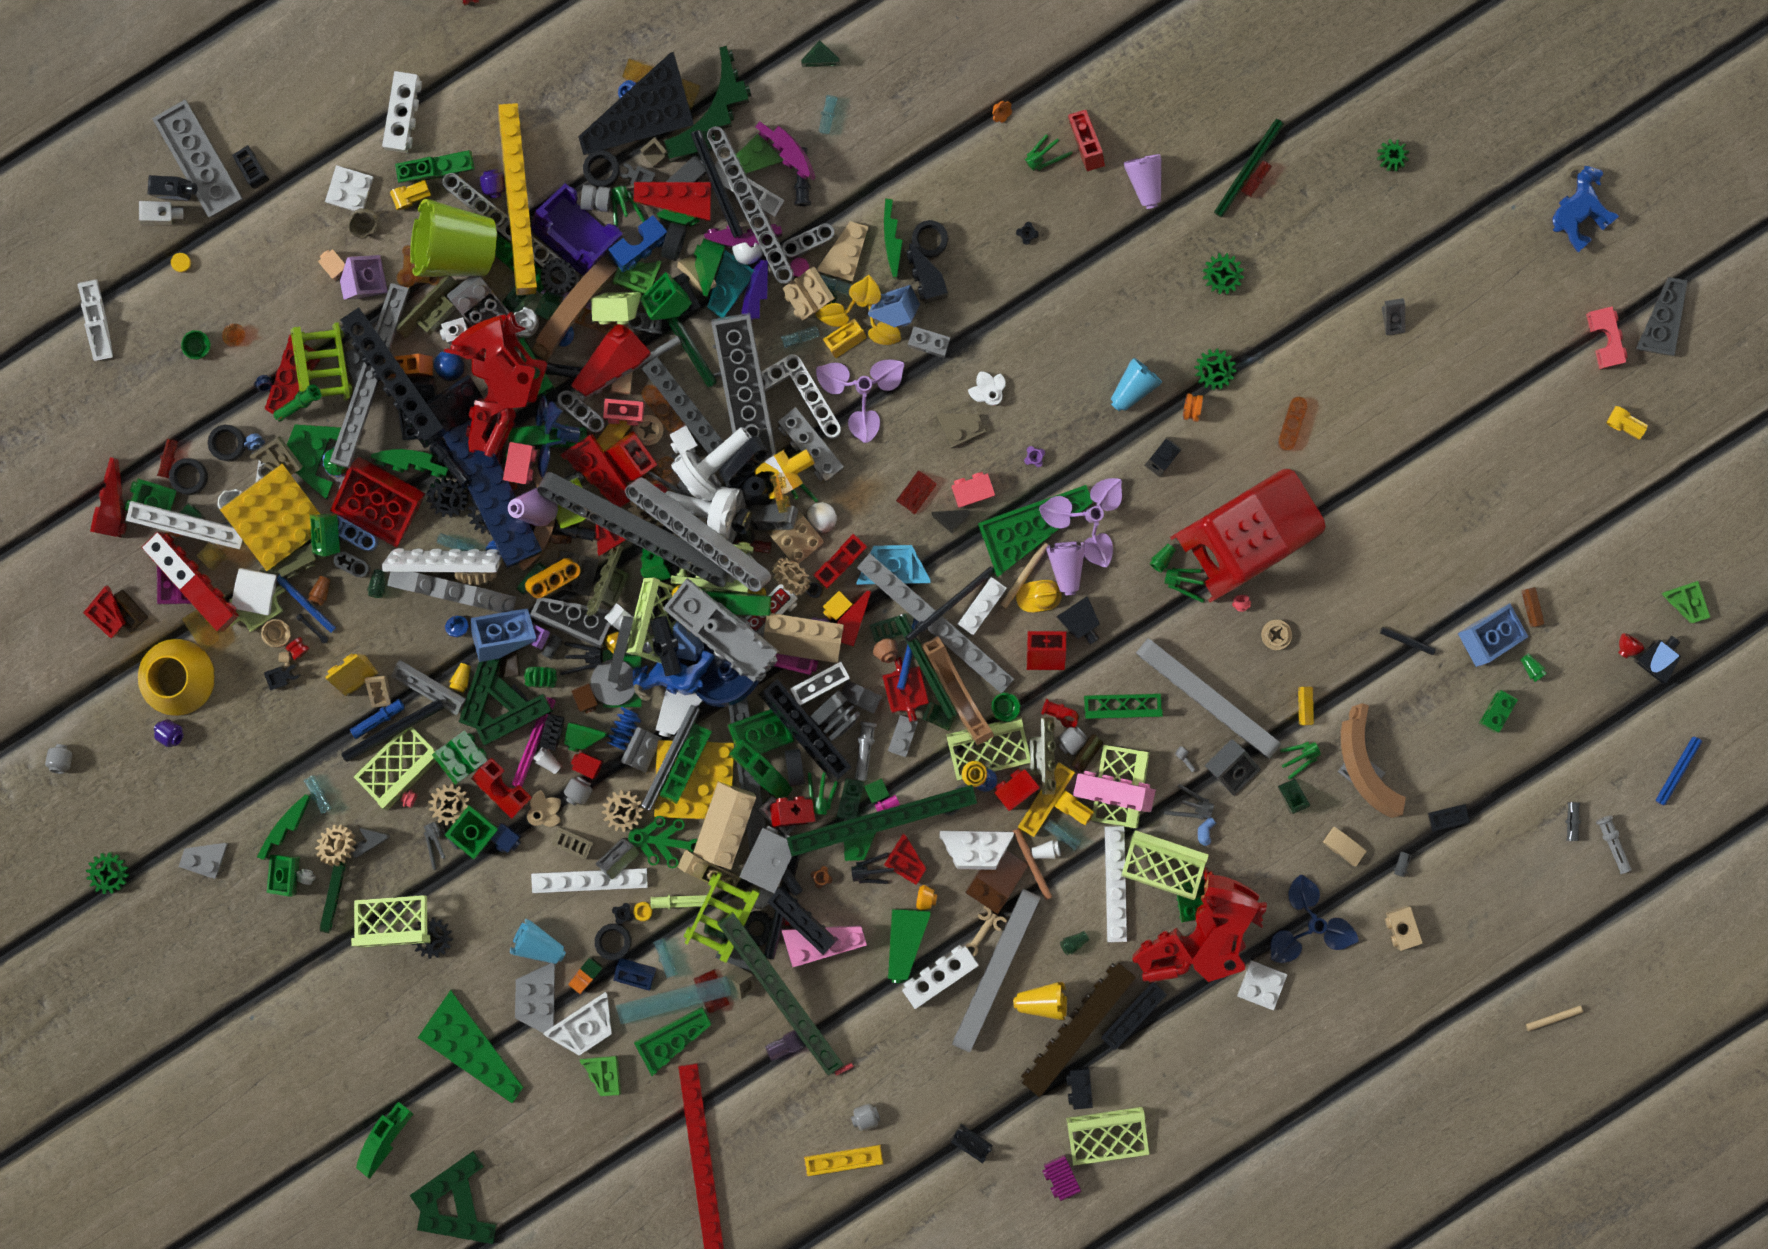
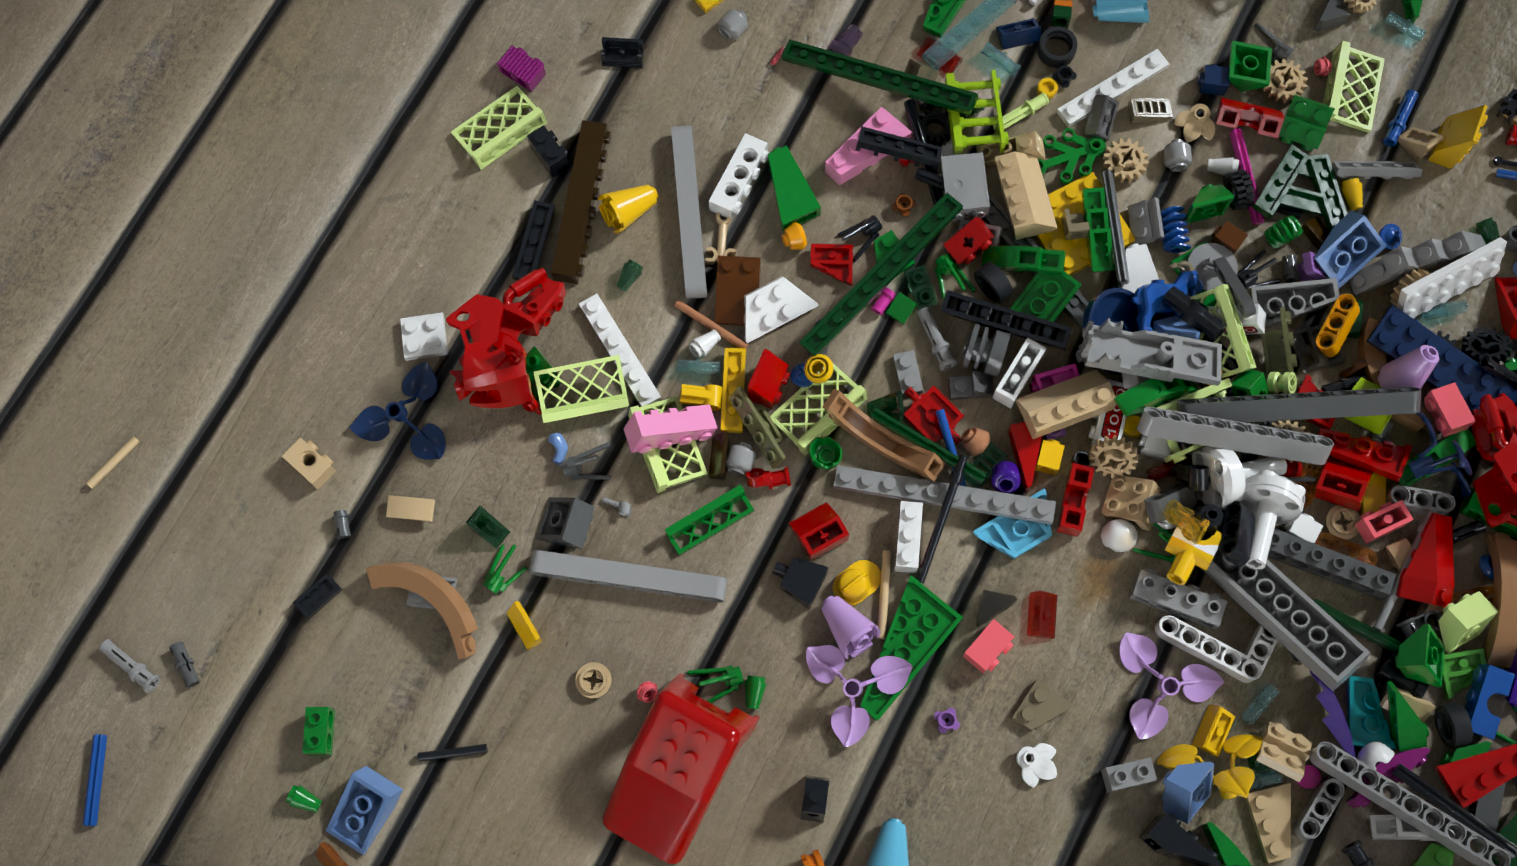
camera: 155 degrees right, 15 degrees down
(392, 730) = (1380, 115): black axle -> none
(587, 764) = (1187, 178): red brick -> none
(627, 558) = (1281, 382): none -> yellowish green wheel
(700, 778) = (1074, 225): none -> dark tan panel
(881, 608) = (1005, 477): none -> dark purple head

